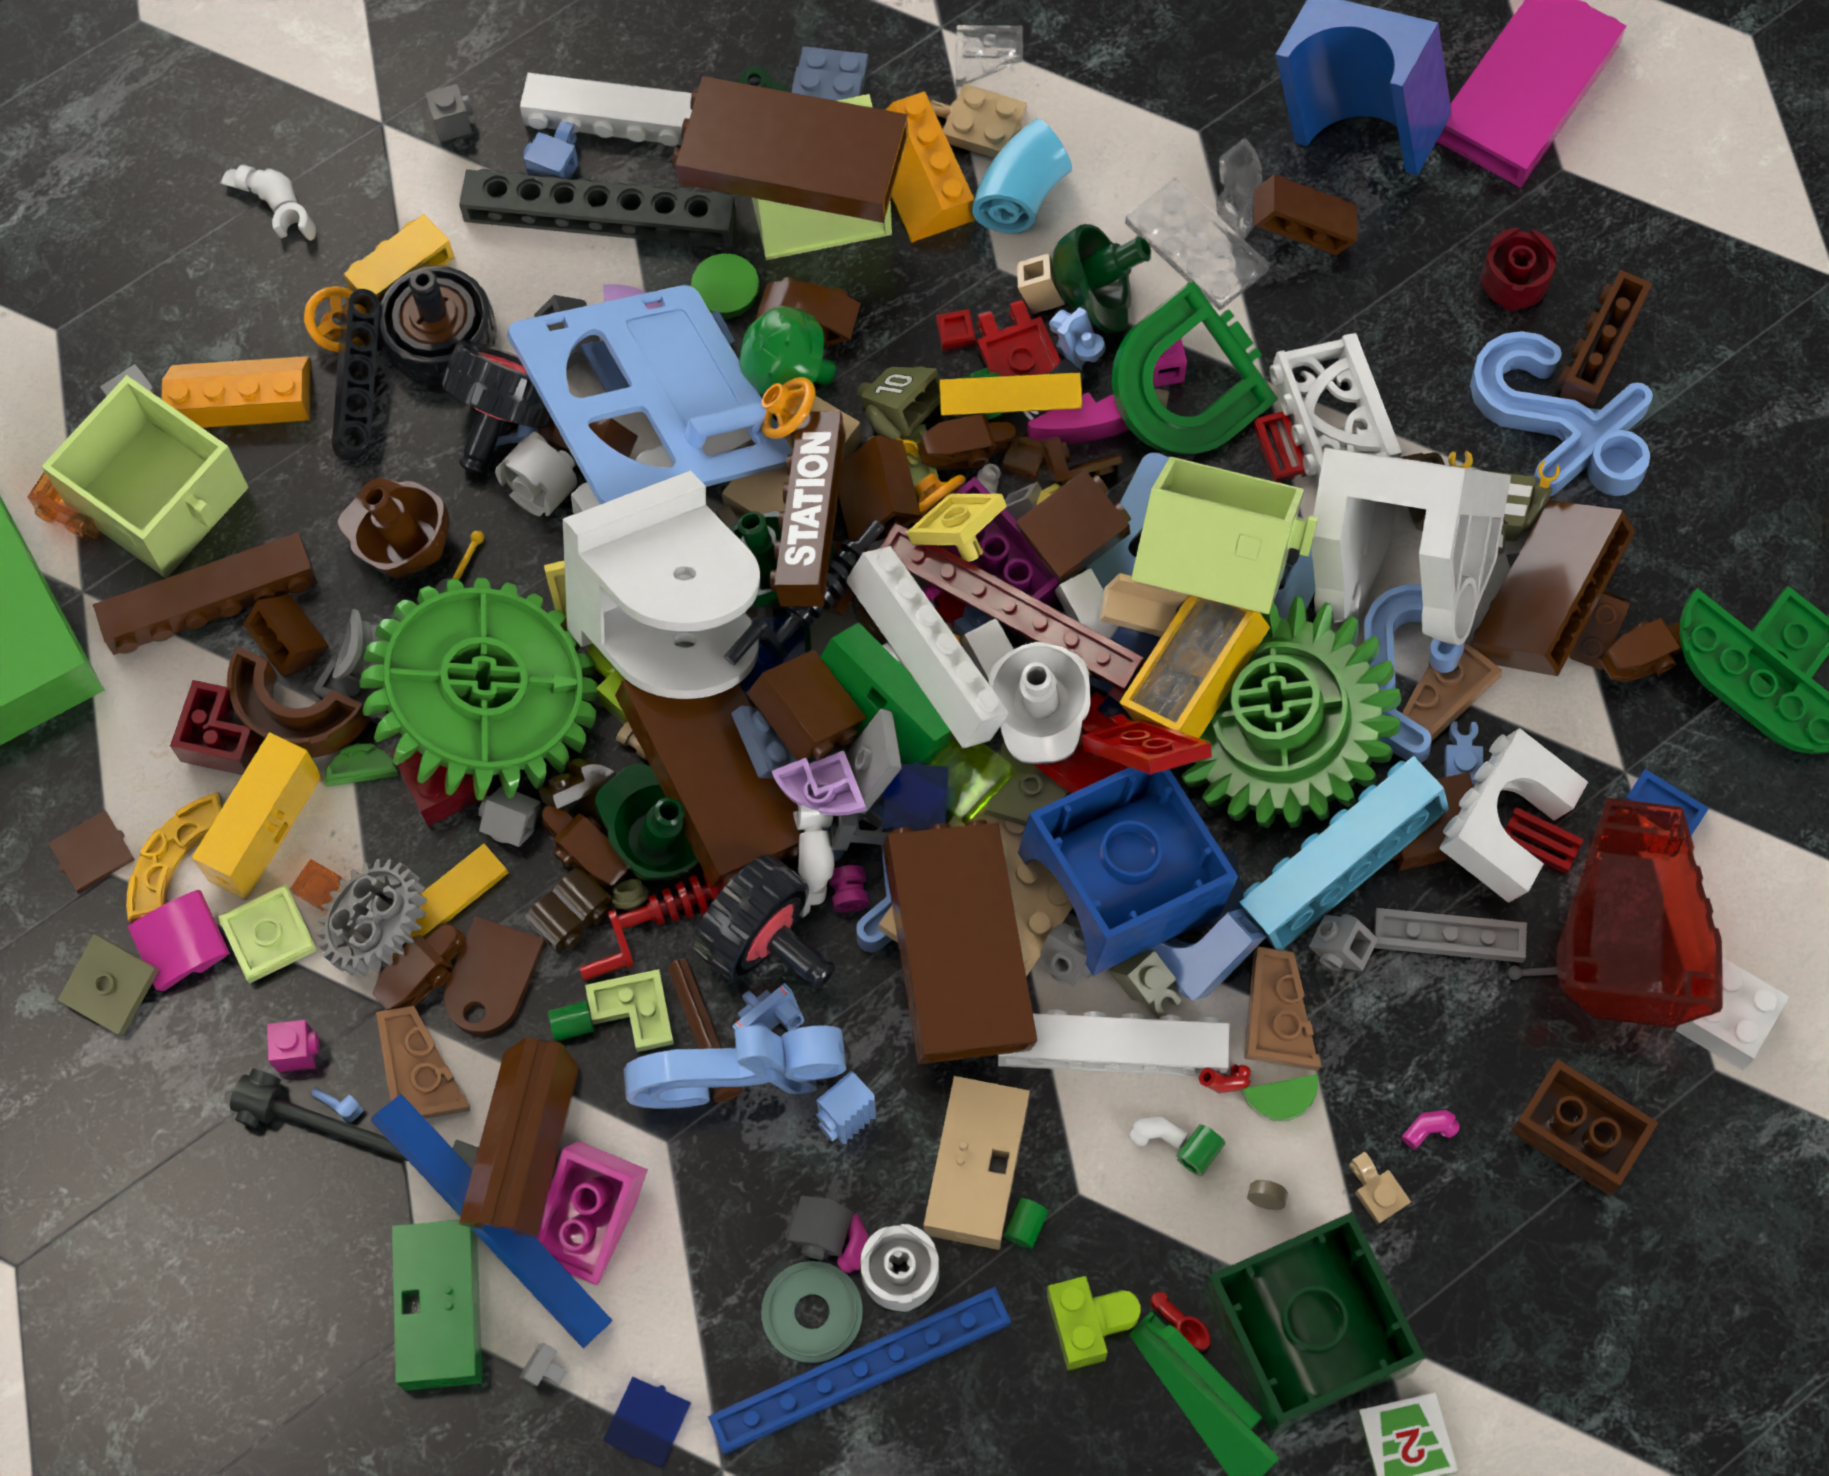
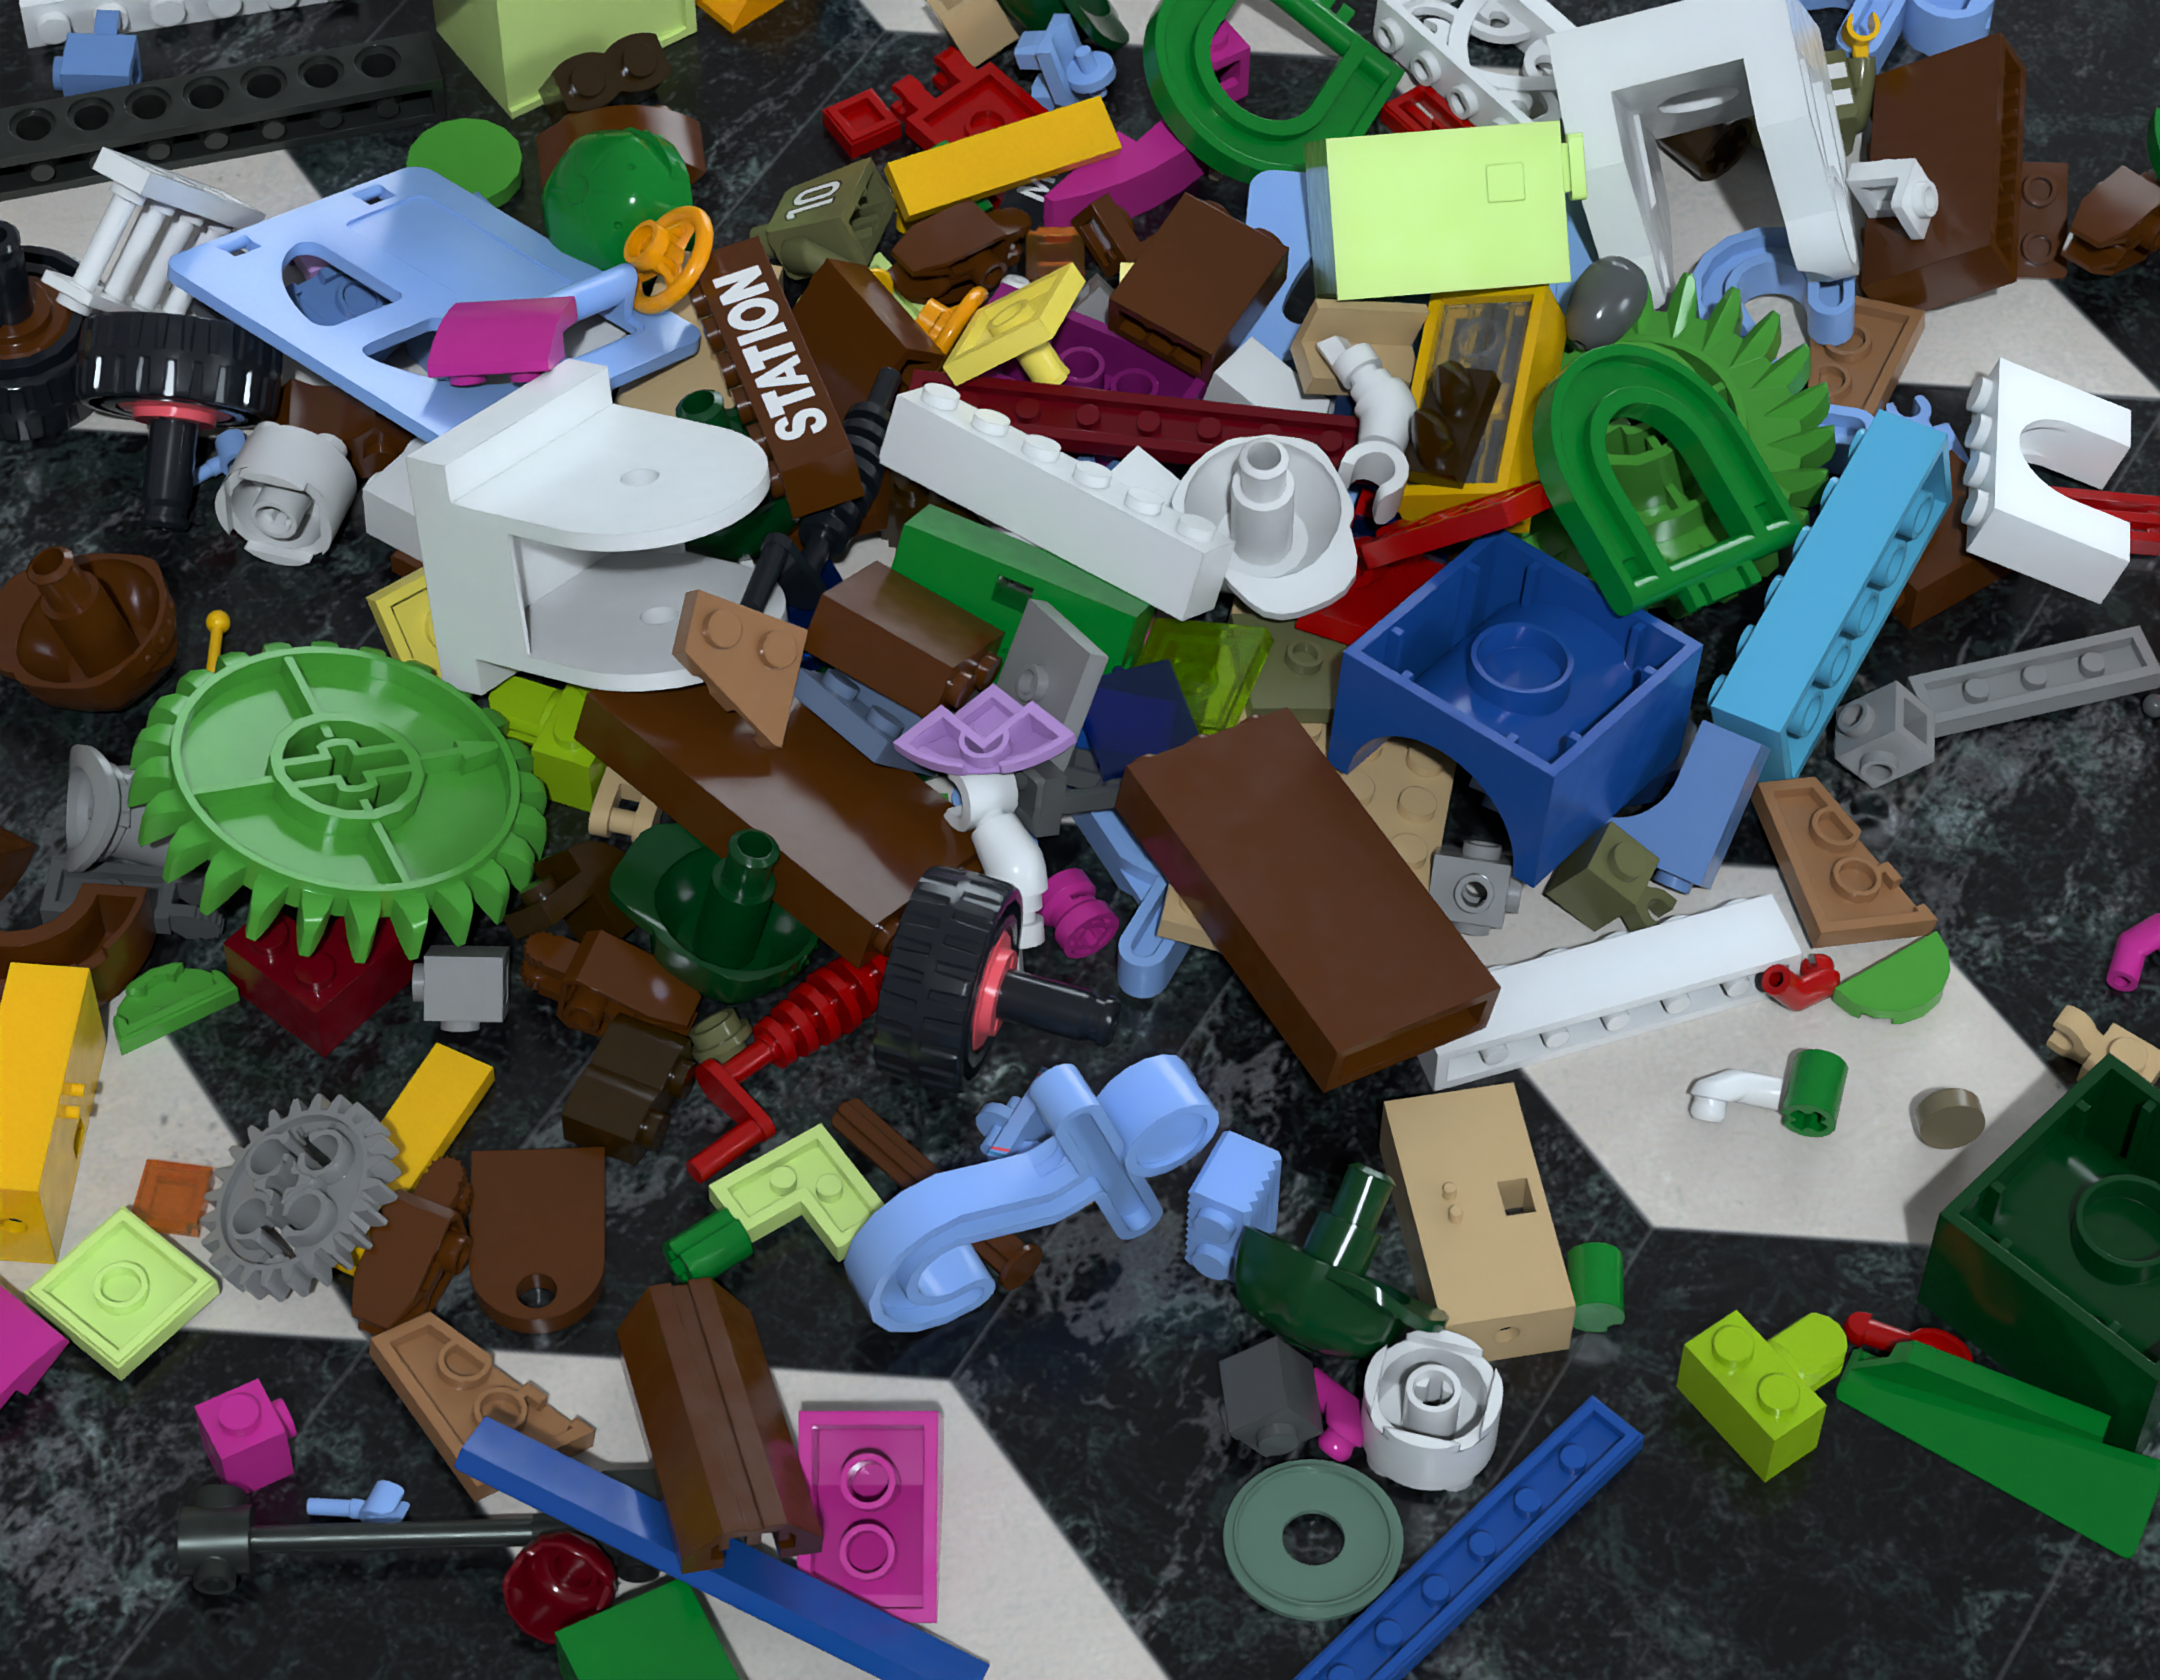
camera: 25 degrees left, 15 degrees down
(410, 1195) = (557, 1584): none -> dark red hair
(514, 279) = (159, 194): none -> white fence
(661, 442) = (501, 338): none -> dark pink slope
(707, 695) = (743, 659): none -> medium nougat wing
(829, 257) = (594, 80): none -> dark brown brick
(873, 1177) = (1321, 1290): none -> dark green piece
(1133, 656) = (1385, 419): none -> white piece
(1165, 677) = (1450, 425): none -> dark brown tile
(1209, 772) = (1594, 508): none -> green piece
(1293, 624) = (1605, 302): none -> dark grey animal
(1514, 595) = (1894, 190): none -> white bracket

